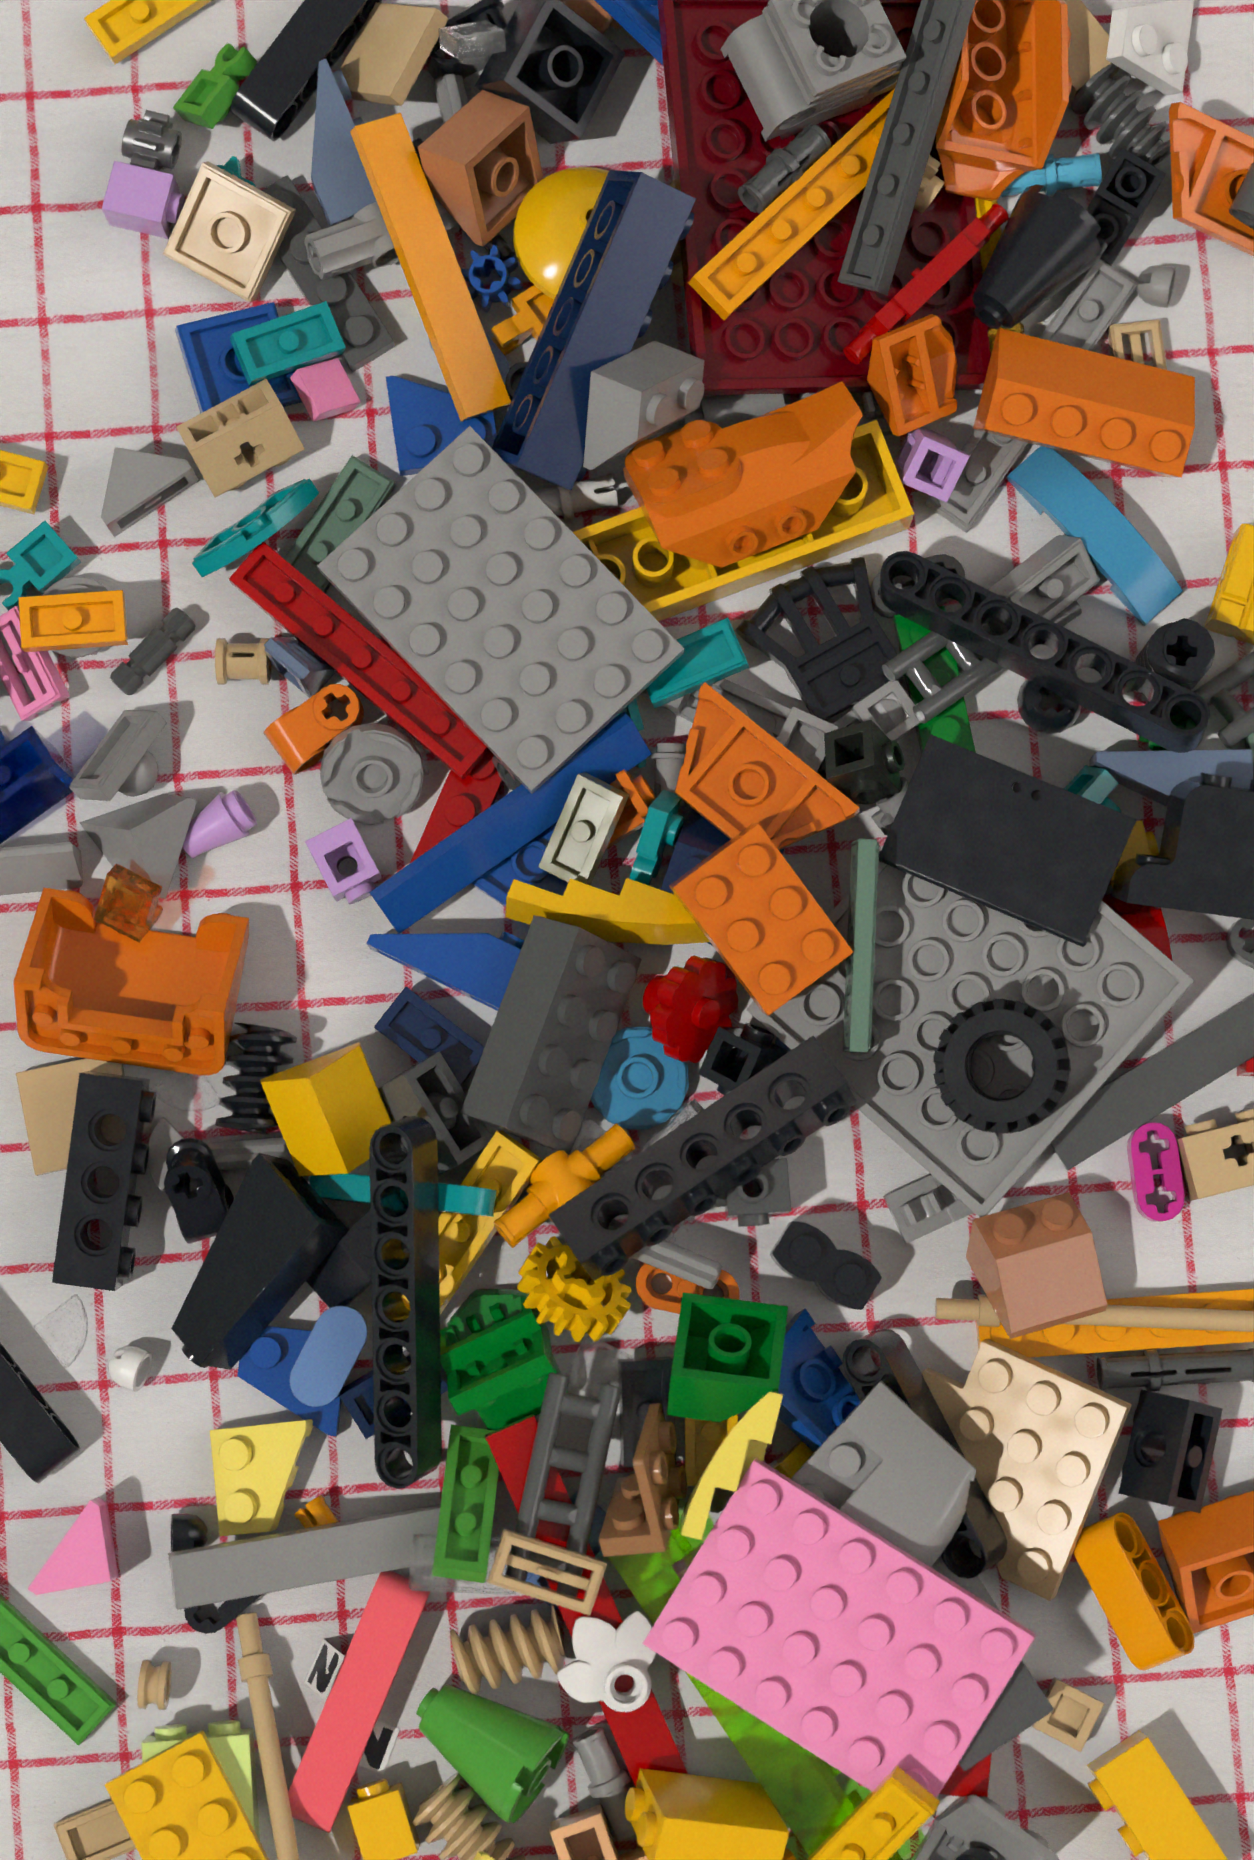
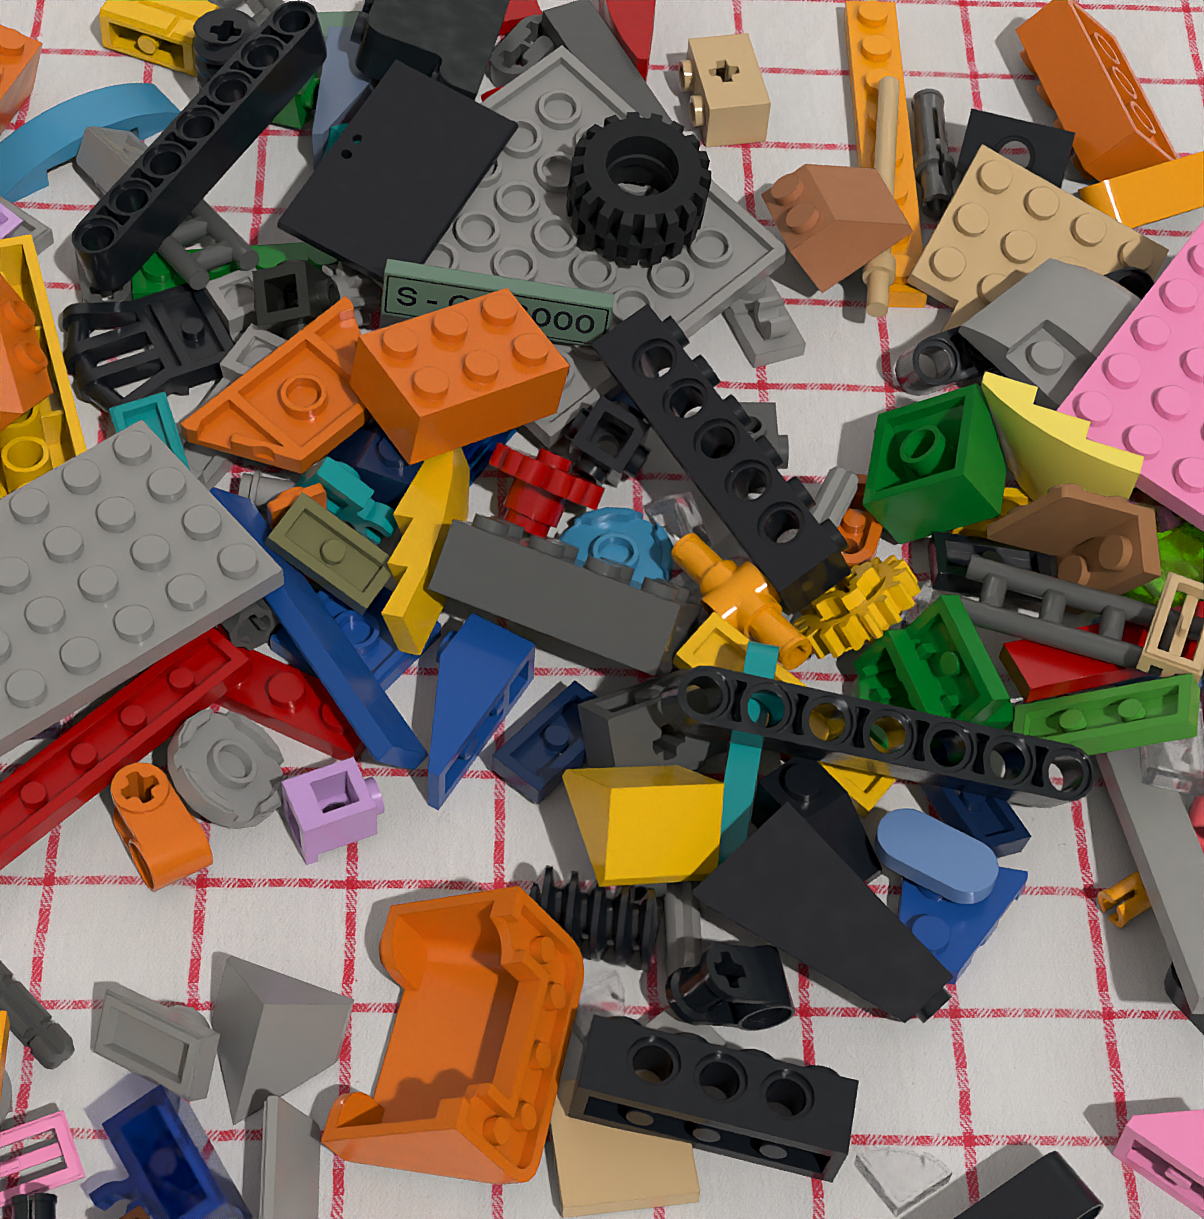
camera: 90 degrees left, 30 degrees down
(129, 903) = (355, 1037): clear orange bracket -> none
(130, 1367) = (949, 1093): white hinge -> none
(187, 1532) = (1156, 1045): black hinge -> none
(219, 823) = (260, 936): lavender cone -> none
(242, 661) = (57, 905): tan bush -> none
(254, 1472) = (1075, 960): light yellow wing -> none
(298, 664) = (77, 832): sand blue slope -> none
(838, 1274) = (830, 399): black brick -> none
(1049, 720) = (252, 182): black piece -> none
(1168, 1171) = (740, 152): dark pink beam -> none

